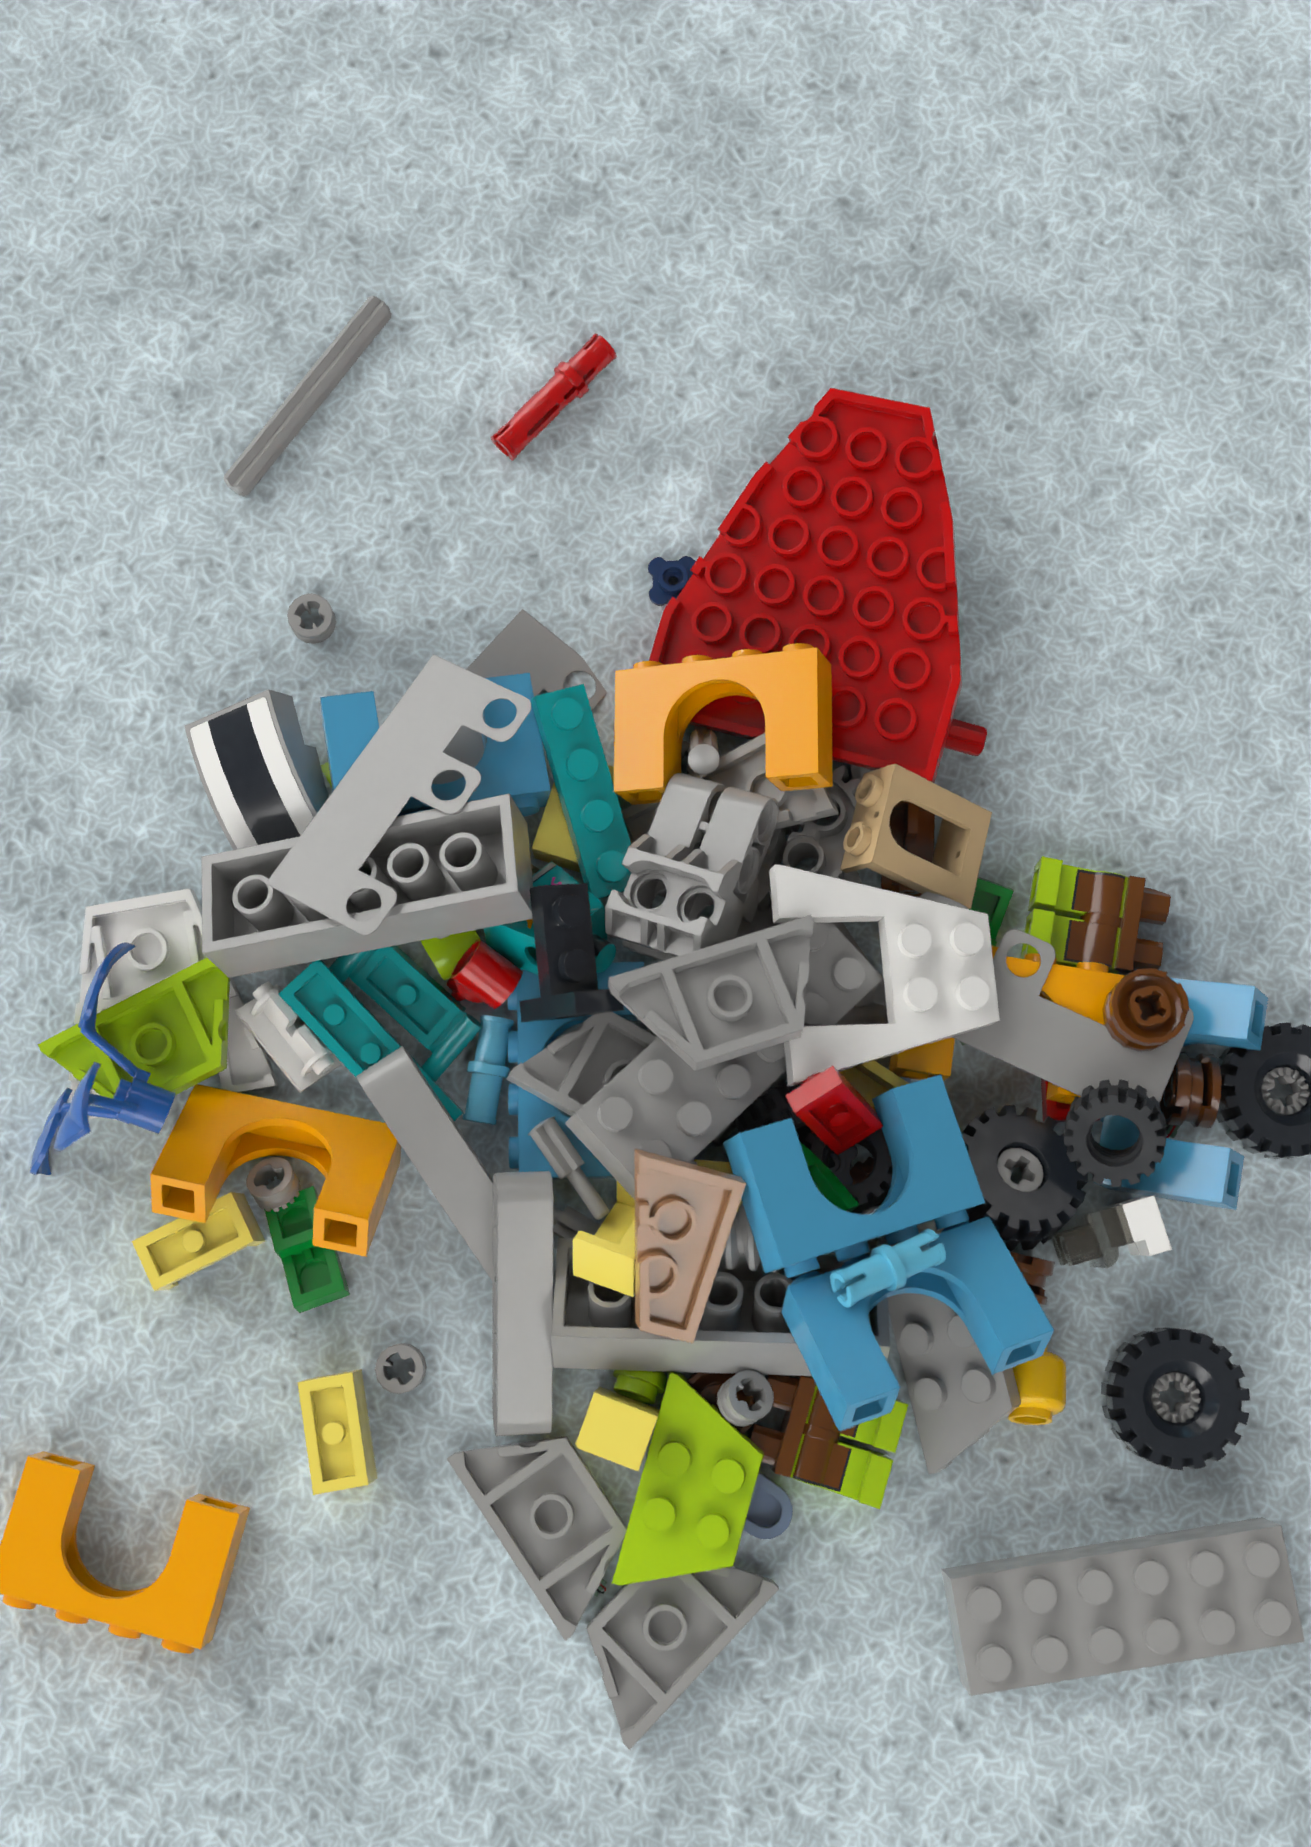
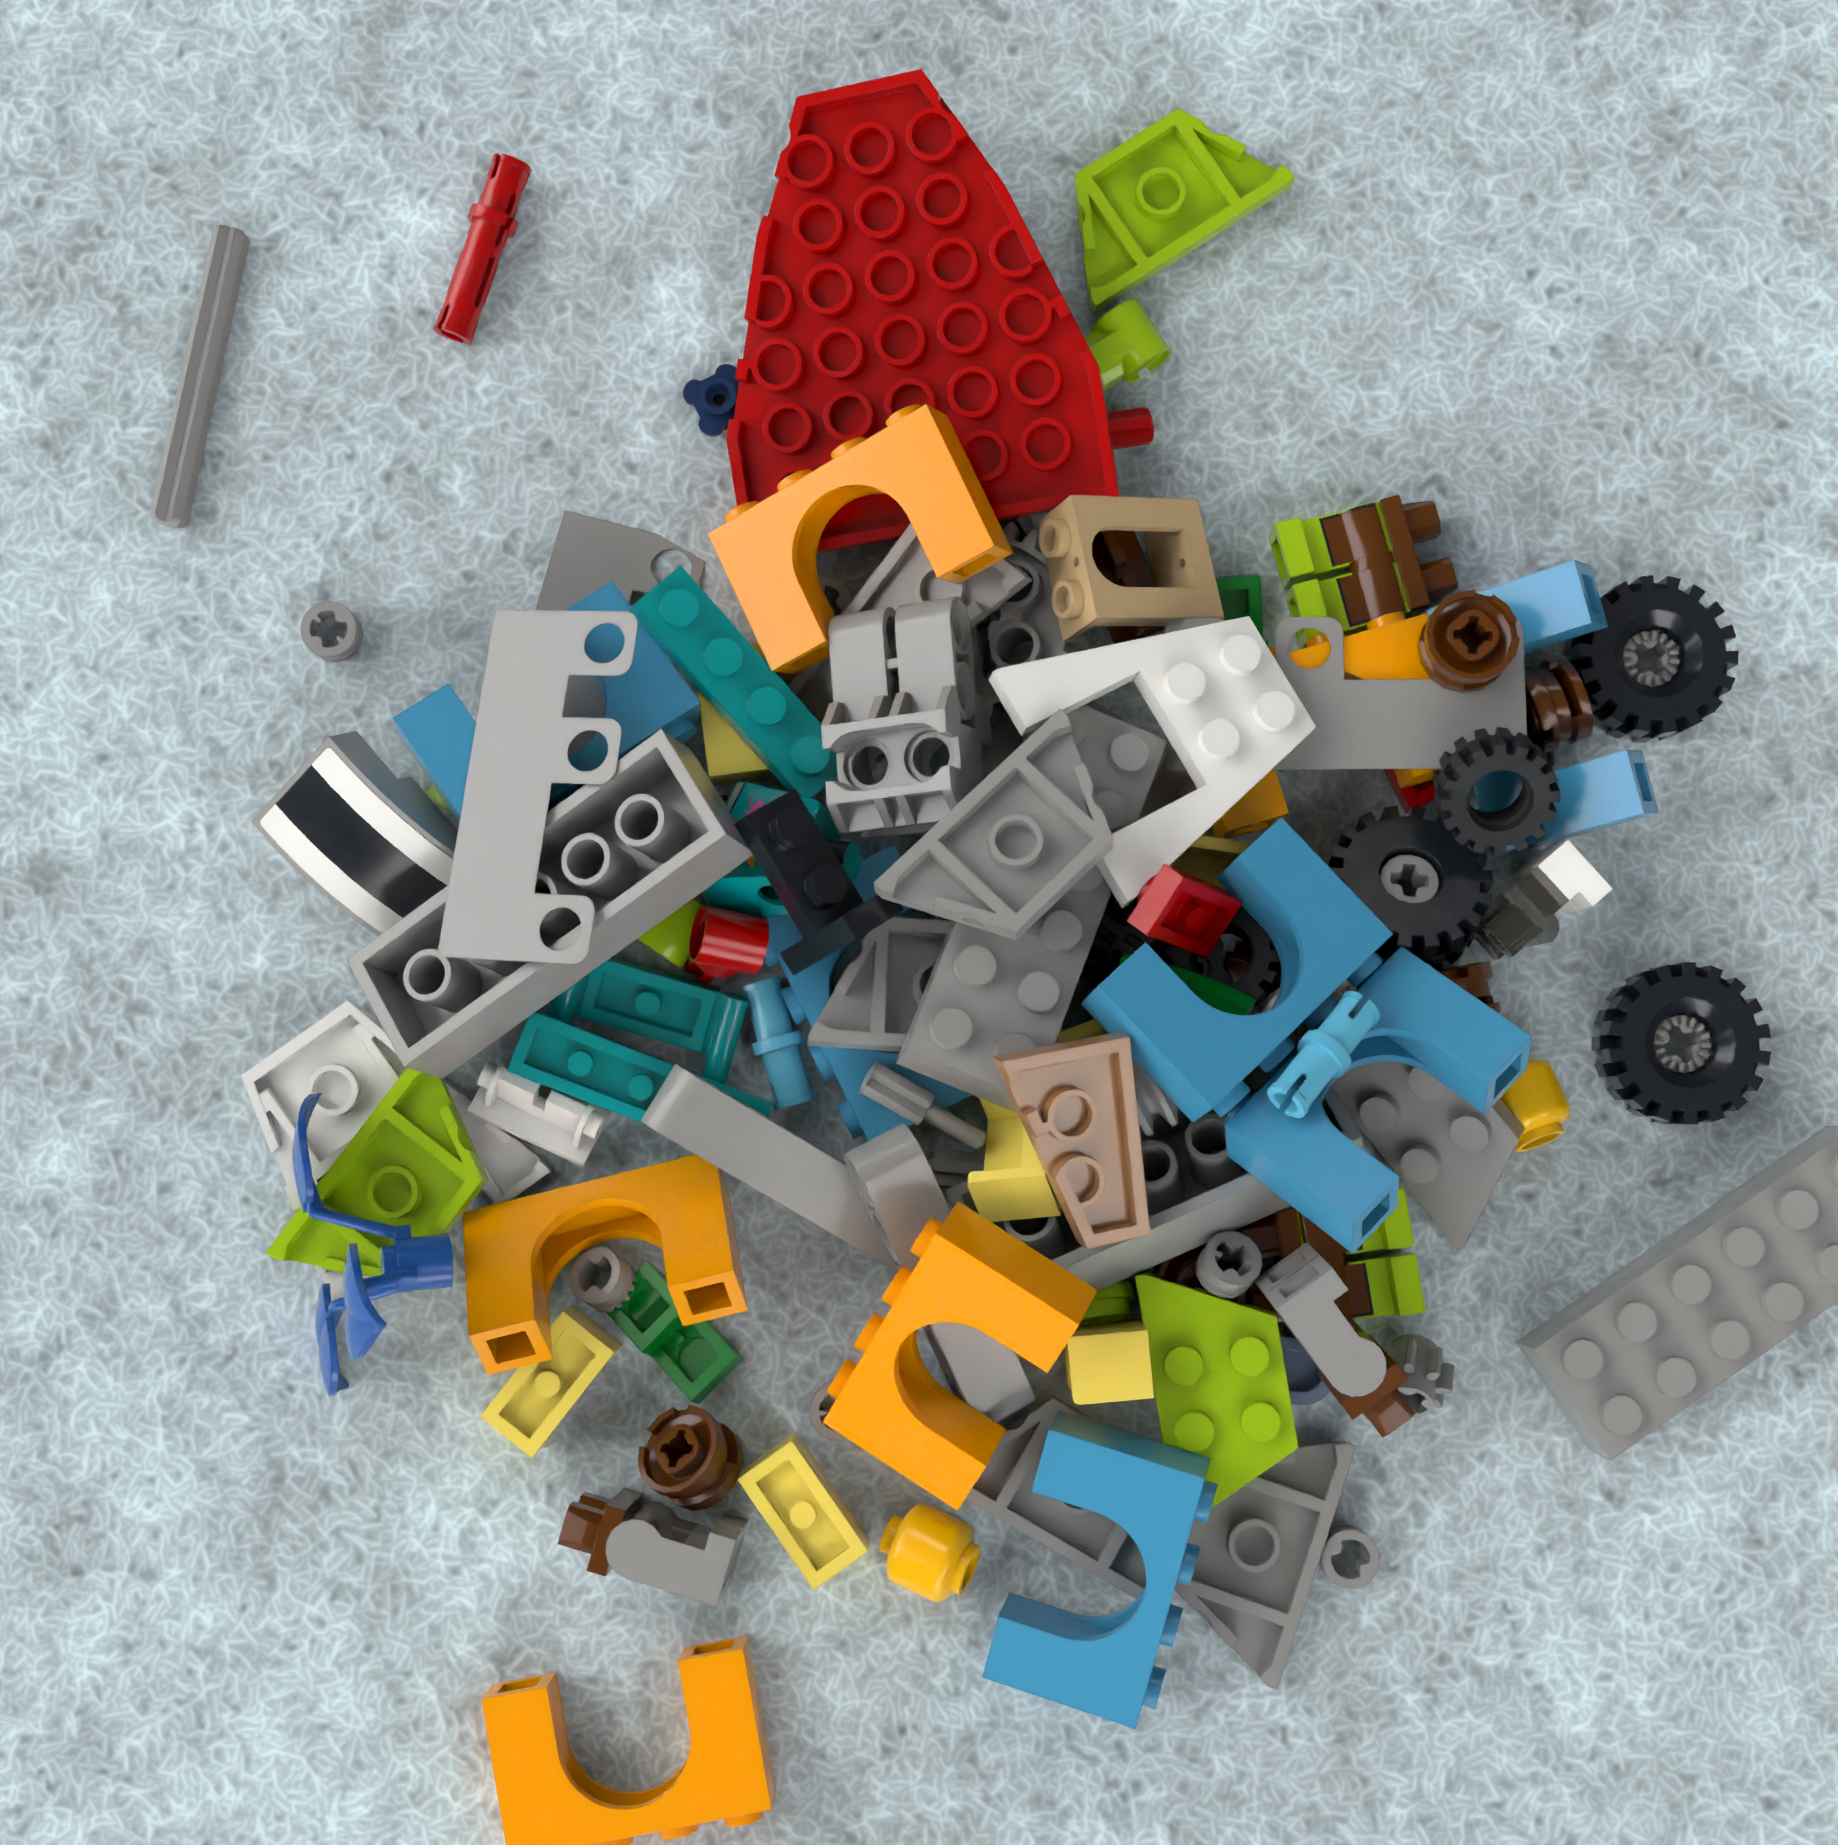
camera: 25 degrees left, 5 degrees up
(213, 1402) = (654, 1545): none -> light grey hips
(272, 1350) = (691, 1458): none -> reddish brown wheel
(416, 1511) = (930, 1552): none -> yellow head
(511, 1661) = (1108, 1659): none -> dark azure arch
(539, 1308) = (968, 1277): none -> light orange arch
(703, 750) = (848, 578): light grey axle -> none
(743, 1688) = (1364, 1568): none -> light grey bush
(797, 1498) = (1348, 1359): none -> light grey hips
(847, 1554) = (1423, 1366): none -> light grey gear
(991, 675) = (1126, 343): none -> lime piece
(1070, 584) = (1163, 200): none -> lime wing

